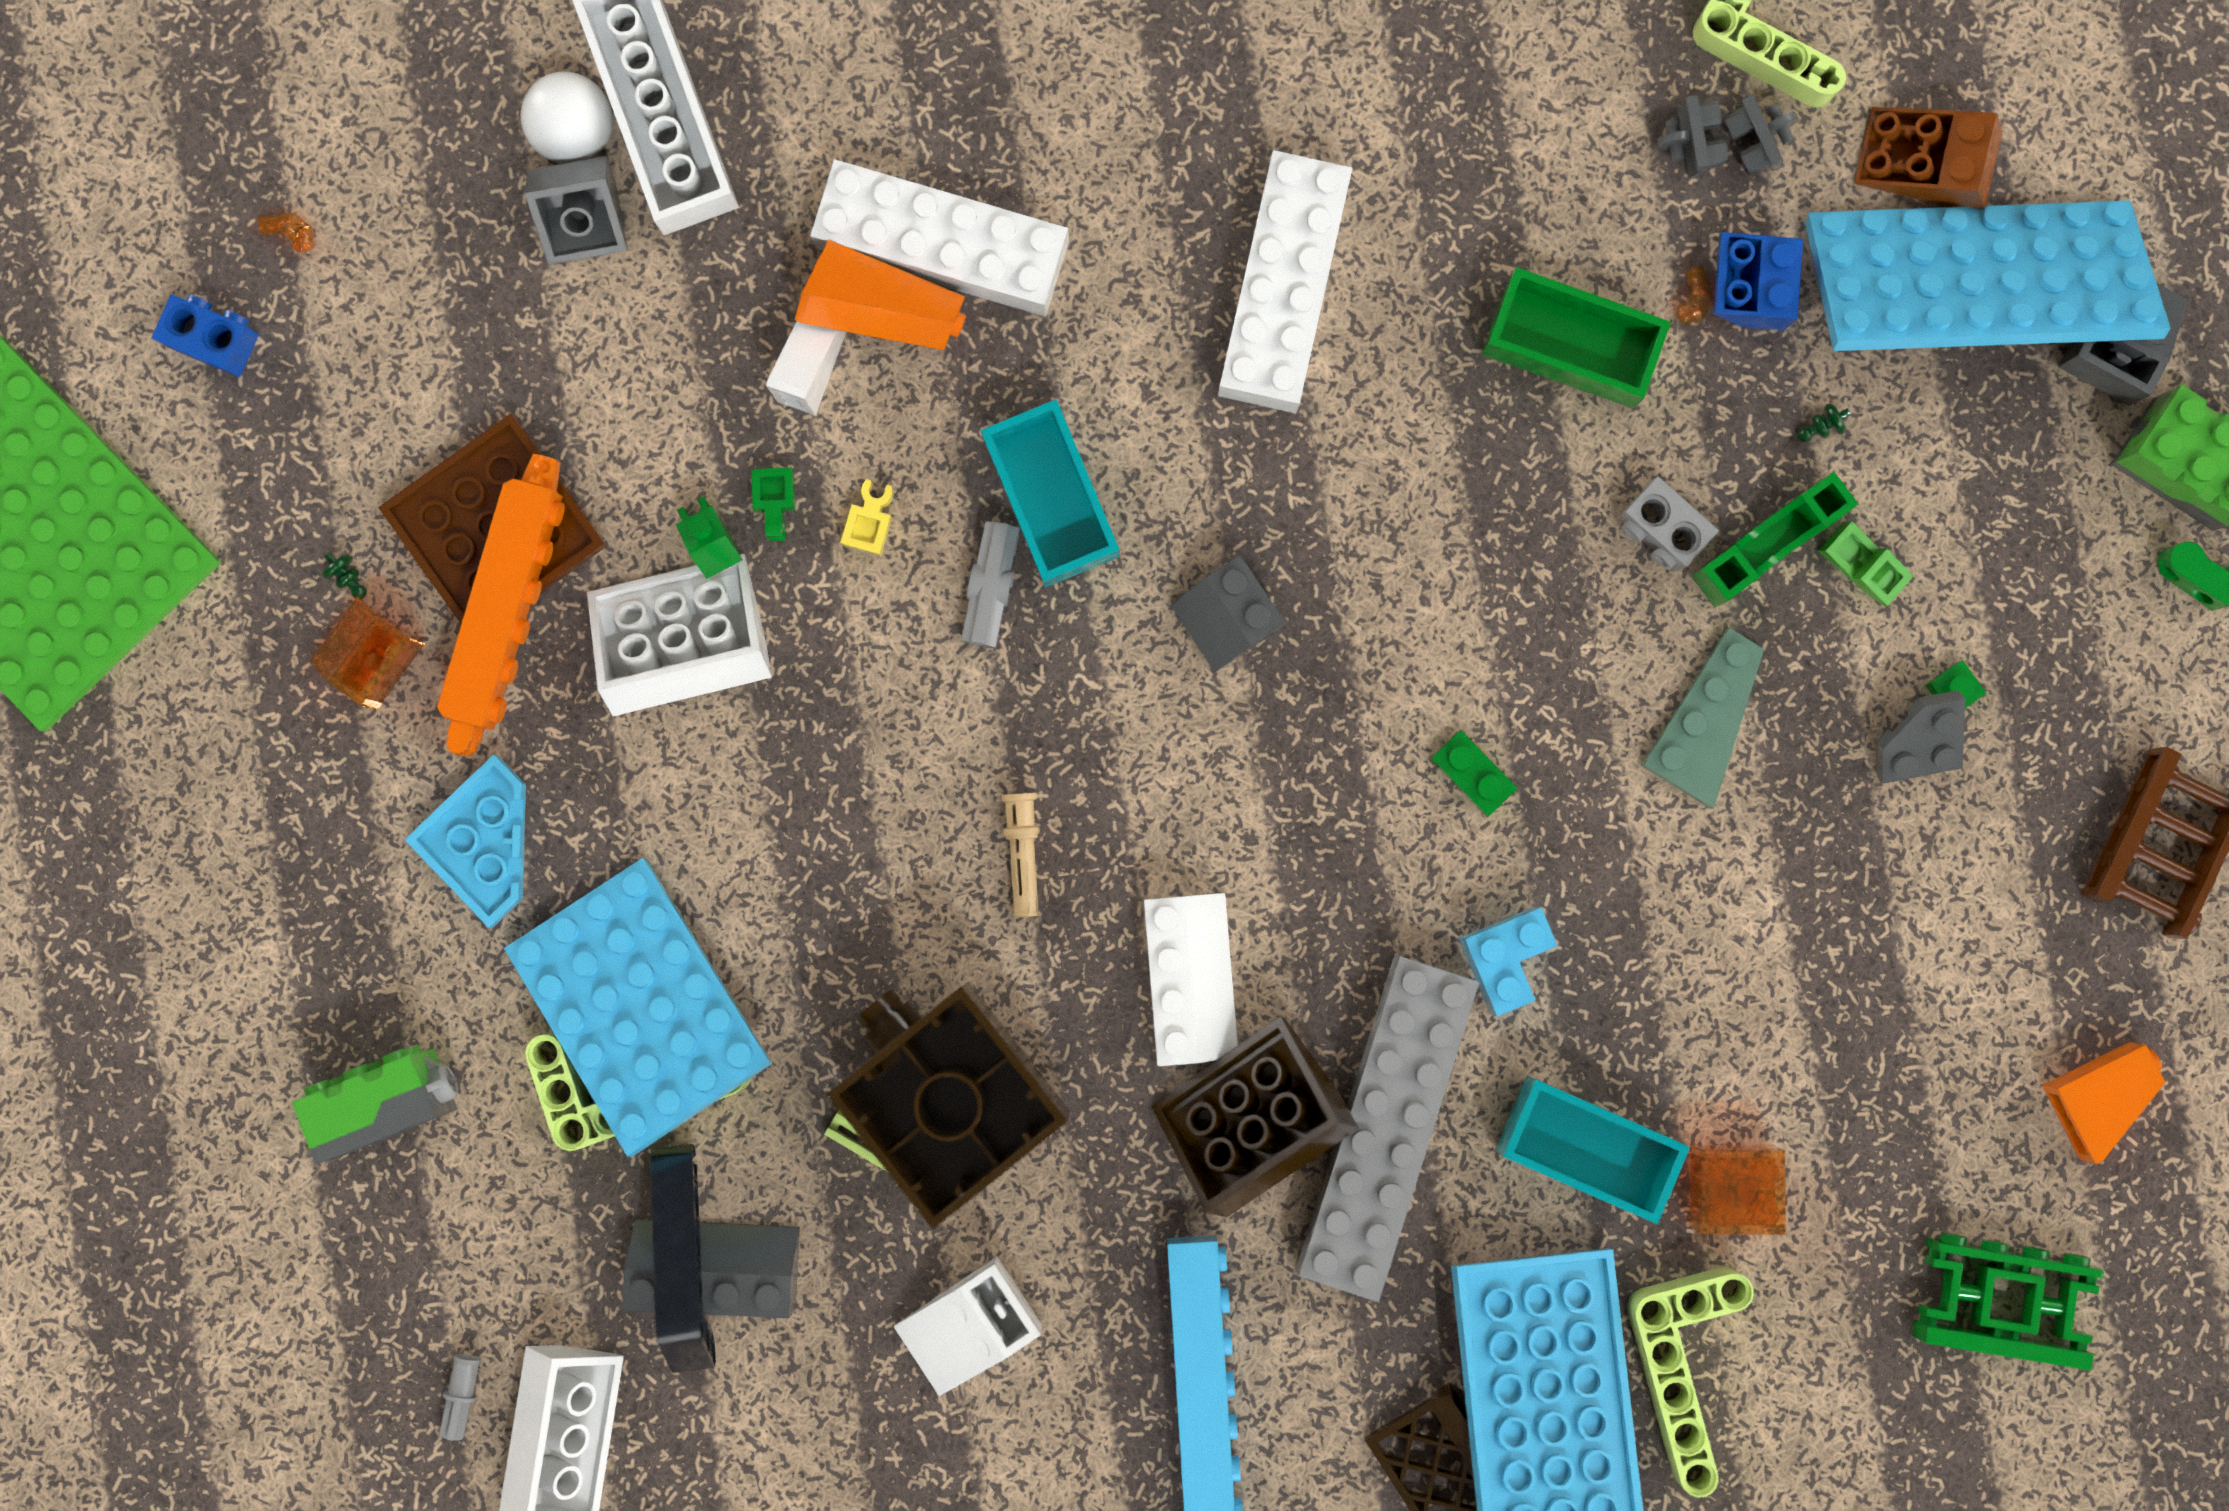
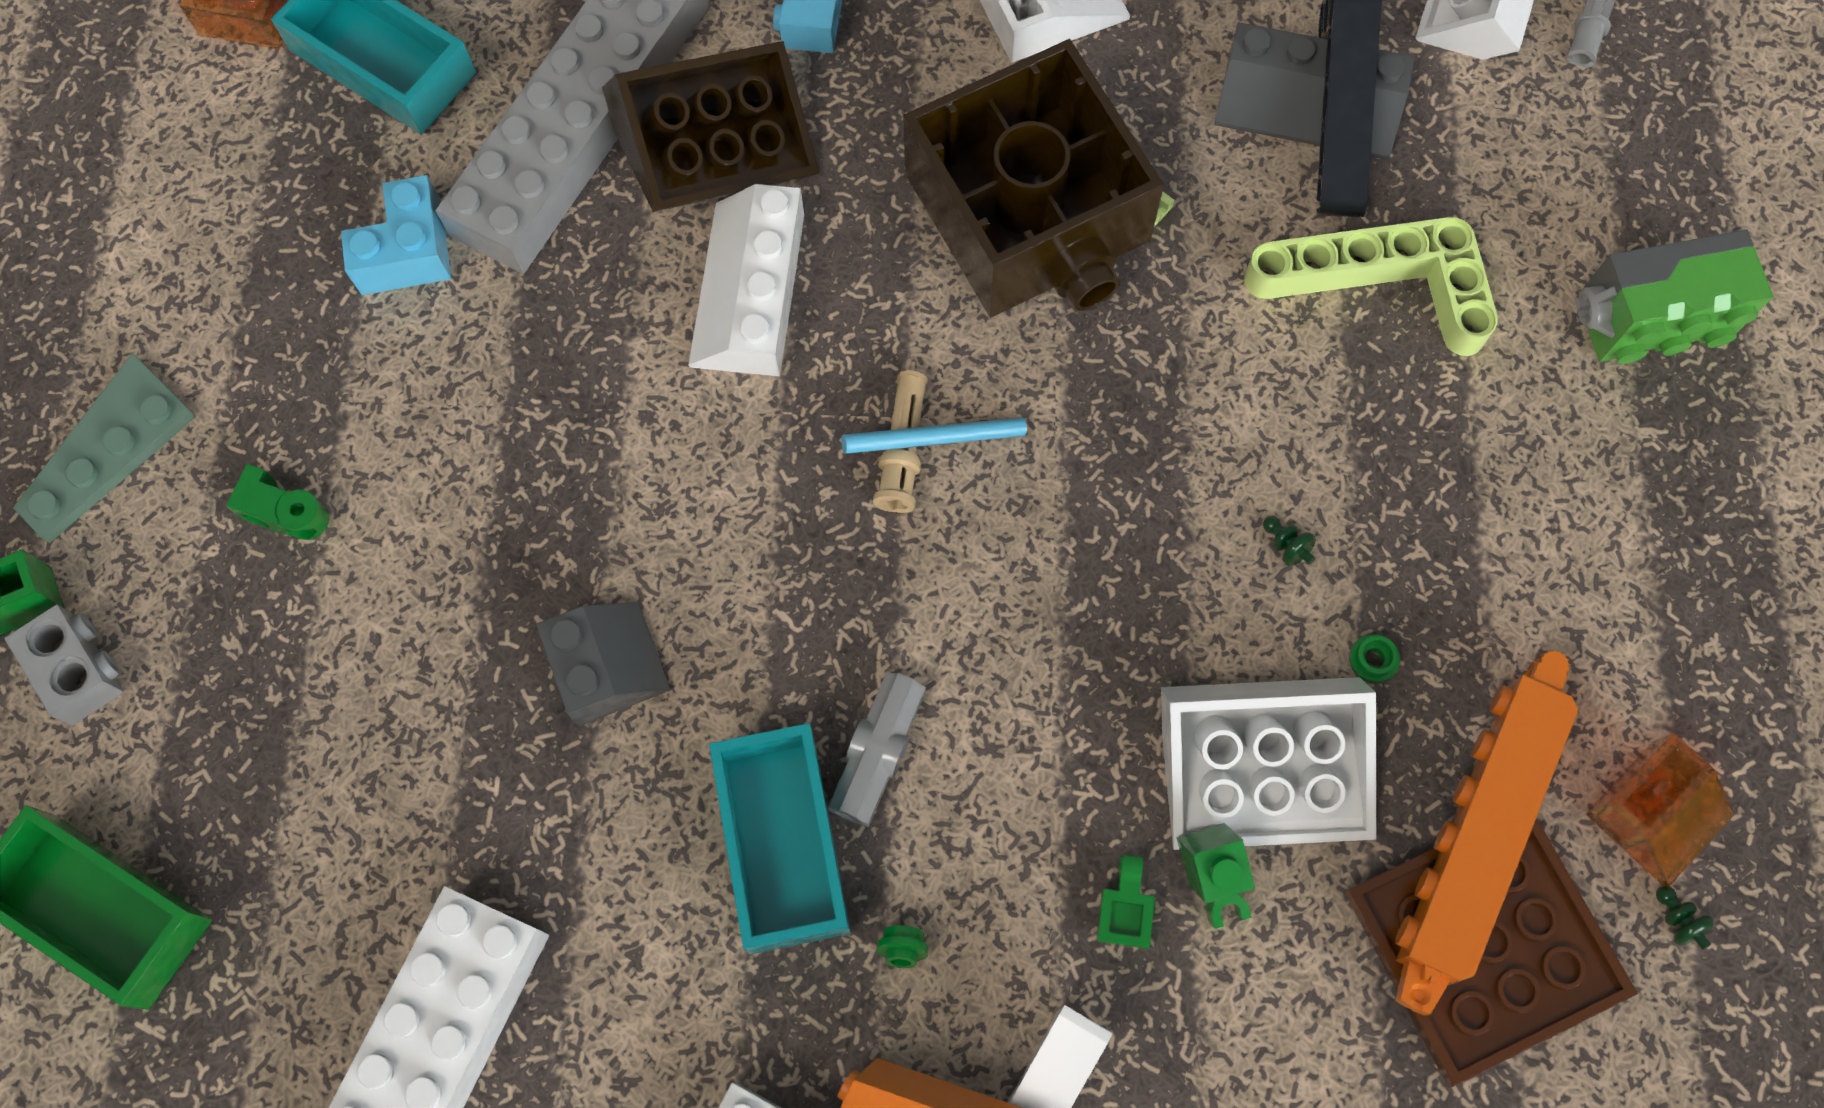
camera: 170 degrees left, 15 degrees down
(479, 840) = (1533, 567): medium azure plate -> none
(590, 734) = (1384, 648): none -> green plate
(637, 1007) = (1365, 352): medium azure plate -> none
(685, 829) = (1286, 538): none -> dark green hair
(867, 525) = (1014, 852): light yellow plate -> none
(941, 435) = (902, 946): none -> green plate
(995, 859) = (933, 435): none -> medium azure bar
(1473, 773) = (379, 438): green plate -> none
(1538, 689) = (263, 504): none -> green leg

